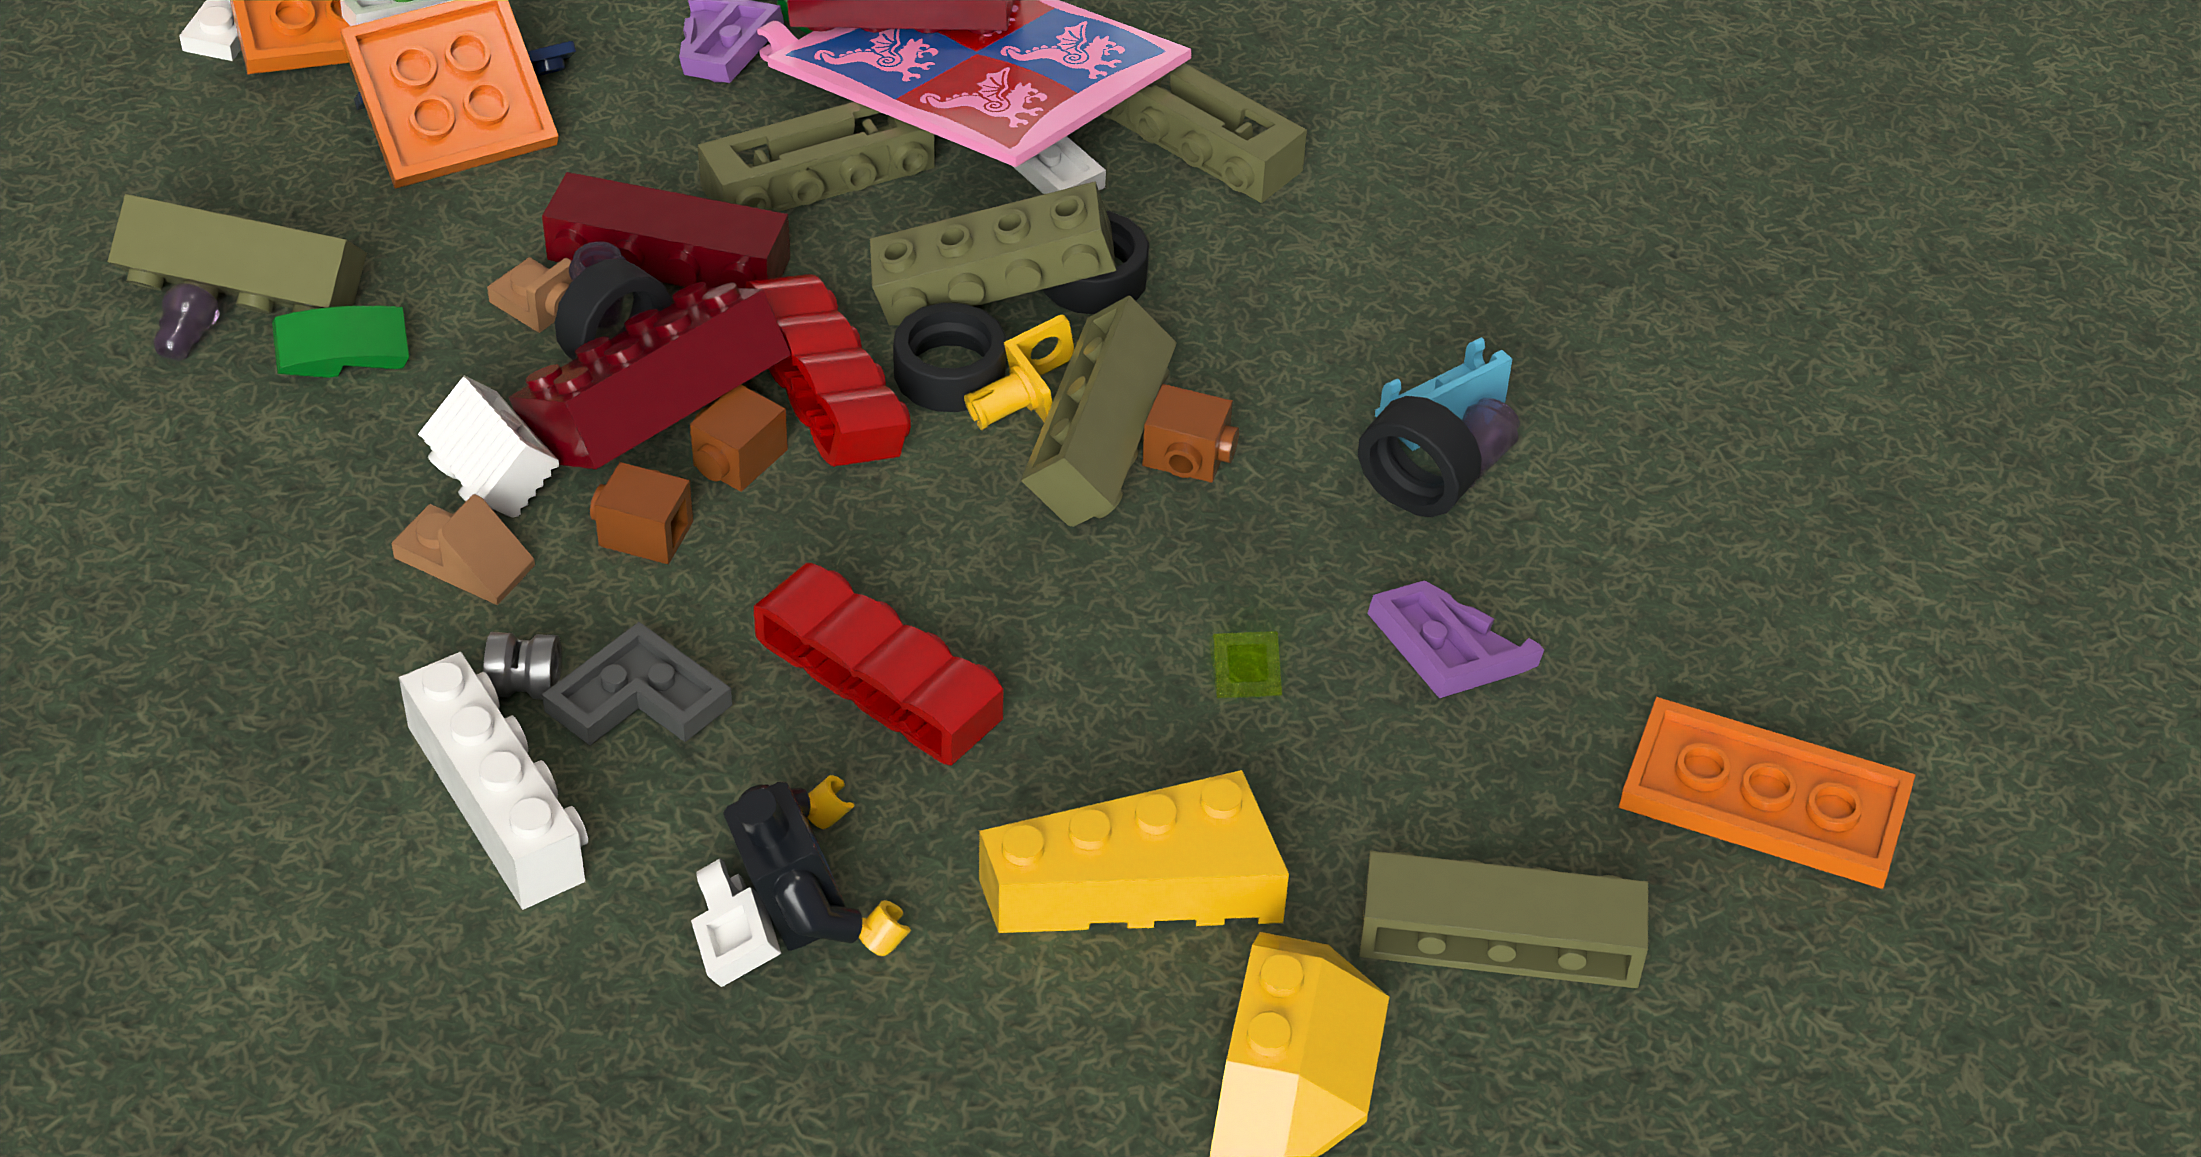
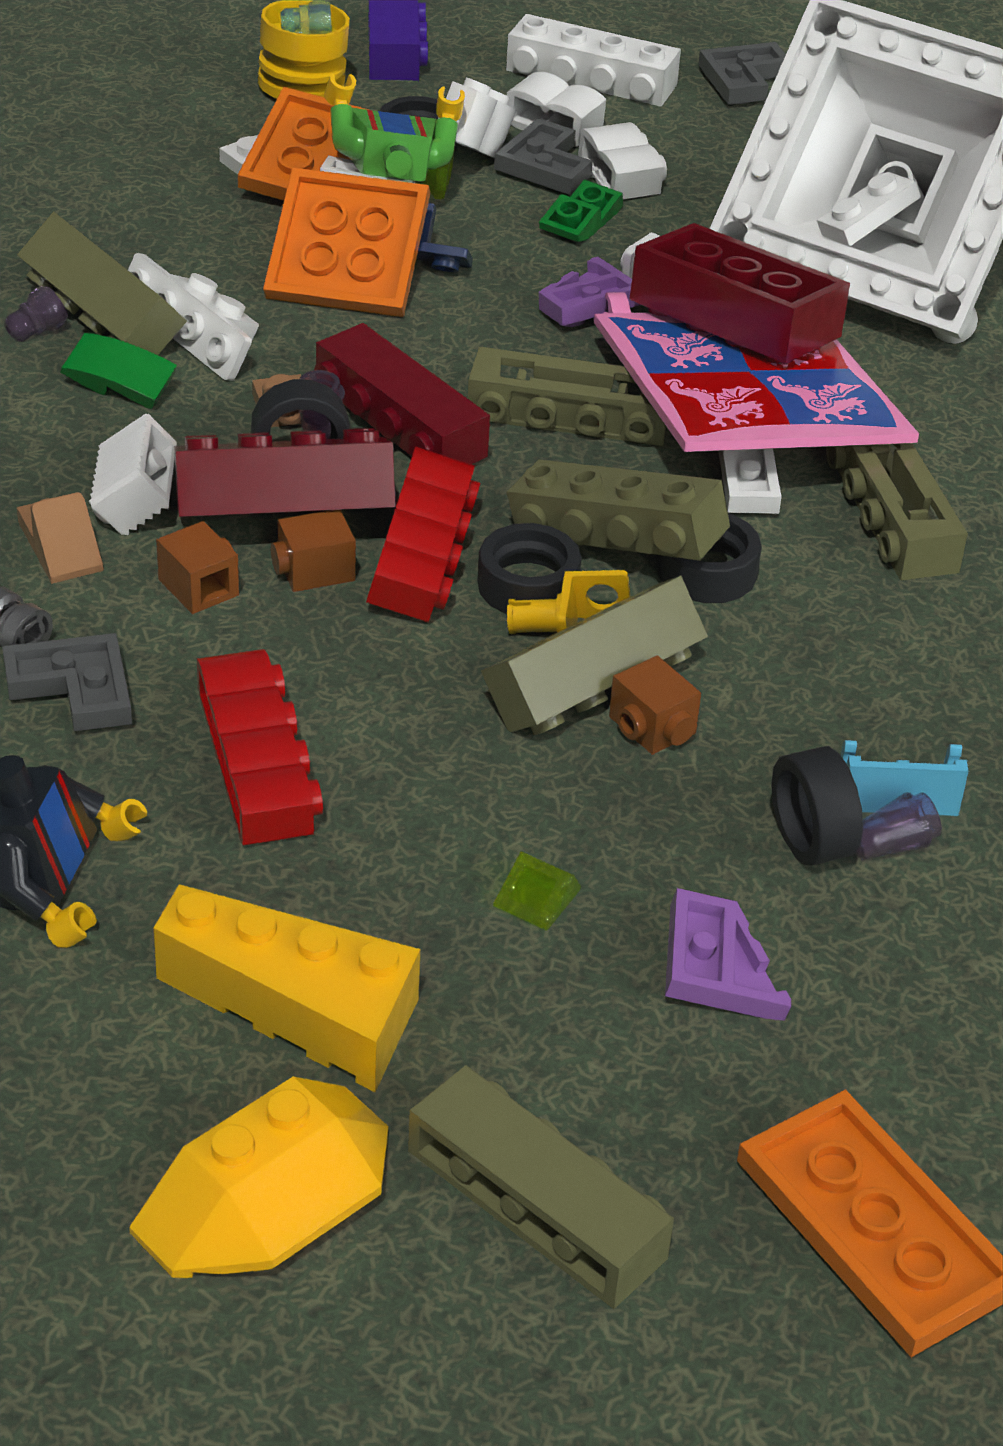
camera: 35 degrees right, 5 degrees down
(396, 246) = (215, 325): none -> white bracket

